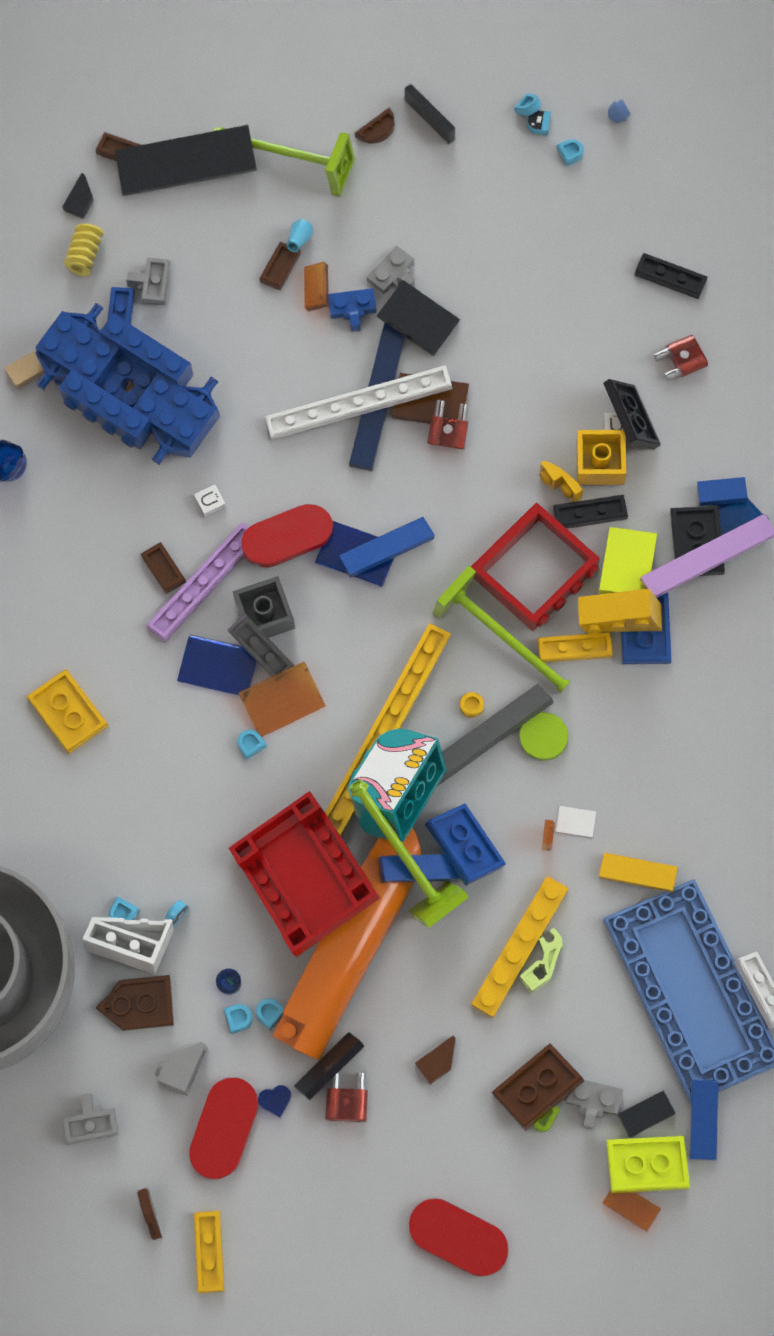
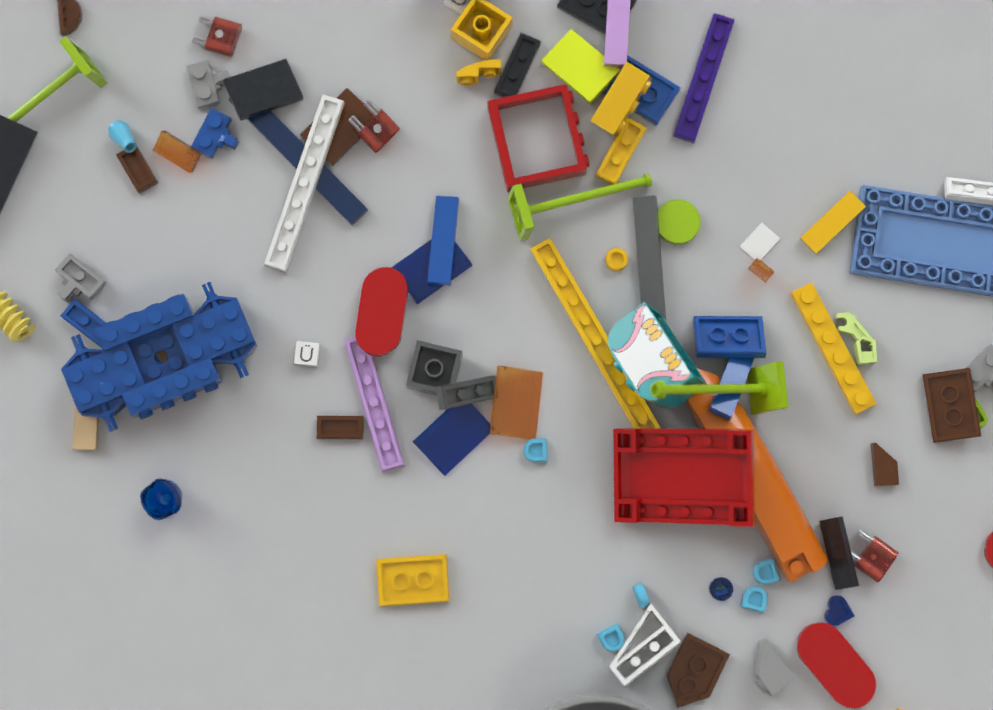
camera: 60 degrees left, 10 degrees up
(443, 257) = (221, 37): none -> clear red piece
(696, 676) = (703, 78): none -> dark purple tile

